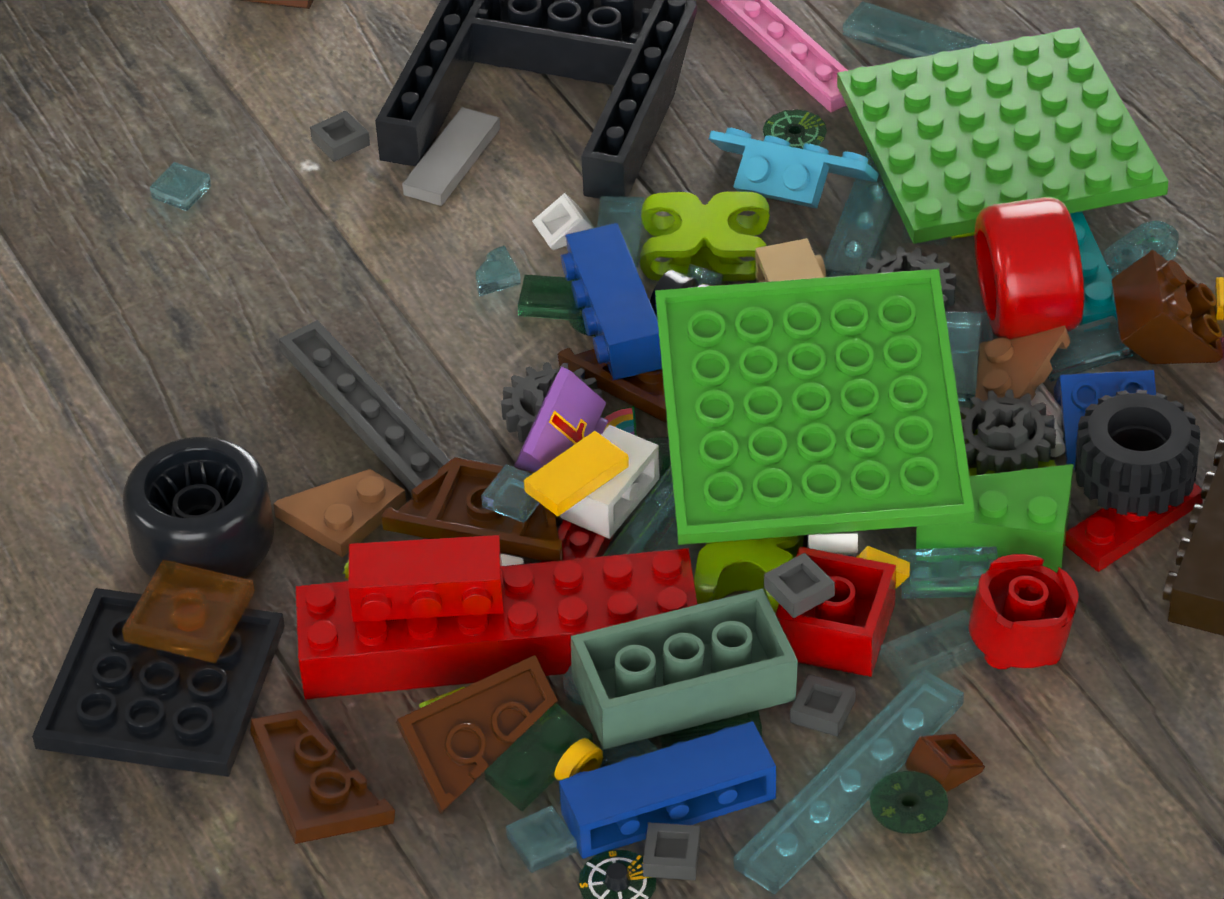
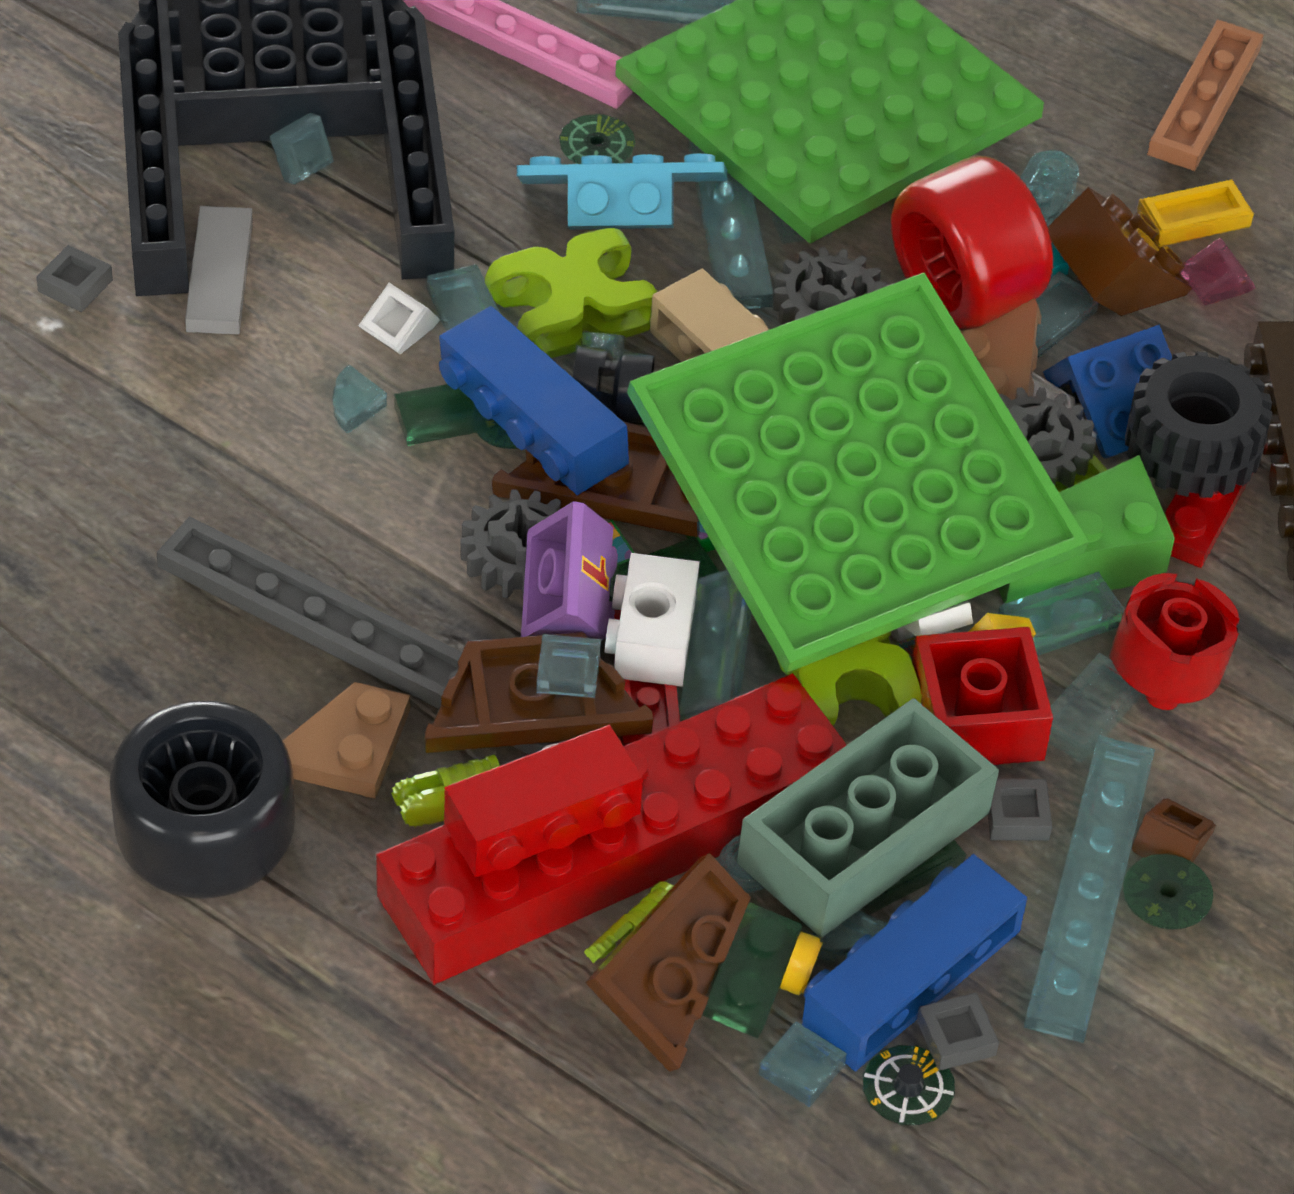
camera: 30 degrees left, 5 degrees up
(153, 703) = (261, 1020): black plate -> none
(188, 611) = (261, 923): clear orange plate -> none
(311, 783) = (518, 1090): reddish brown wing -> none
(560, 83) = (301, 148): none -> clear light blue tile
(576, 473) = (635, 622): yellow tile -> none
(799, 585) = (954, 682): dark grey plate -> none

